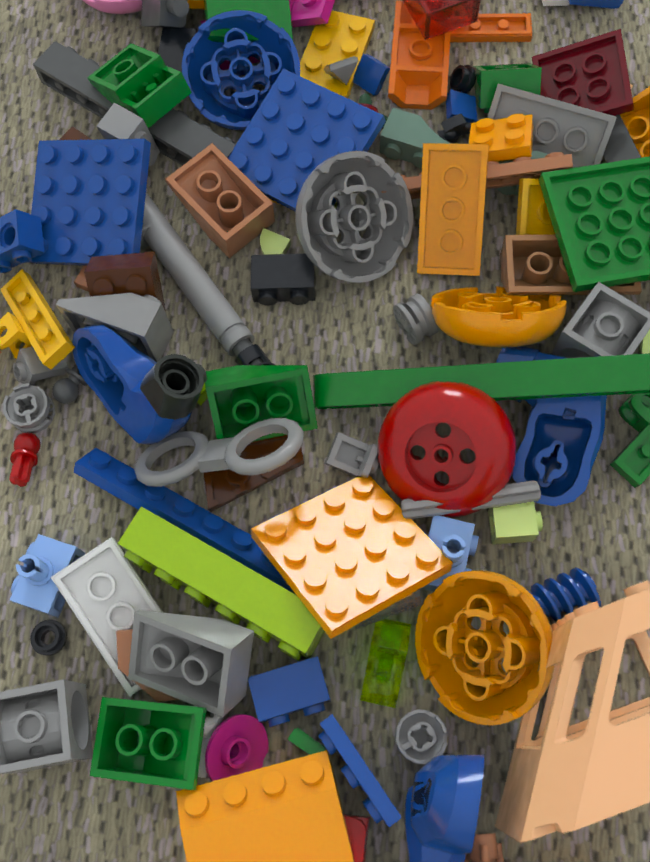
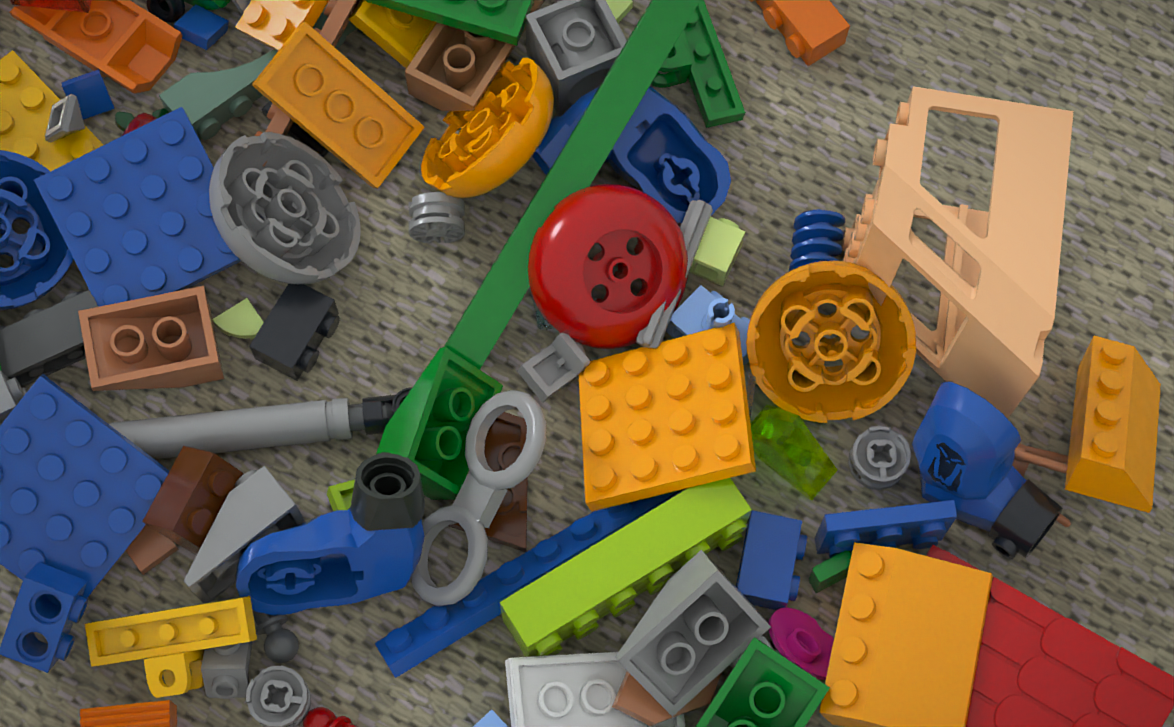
camera: 70 degrees left, 0 degrees up
(454, 128) = (227, 44): black bar -> none

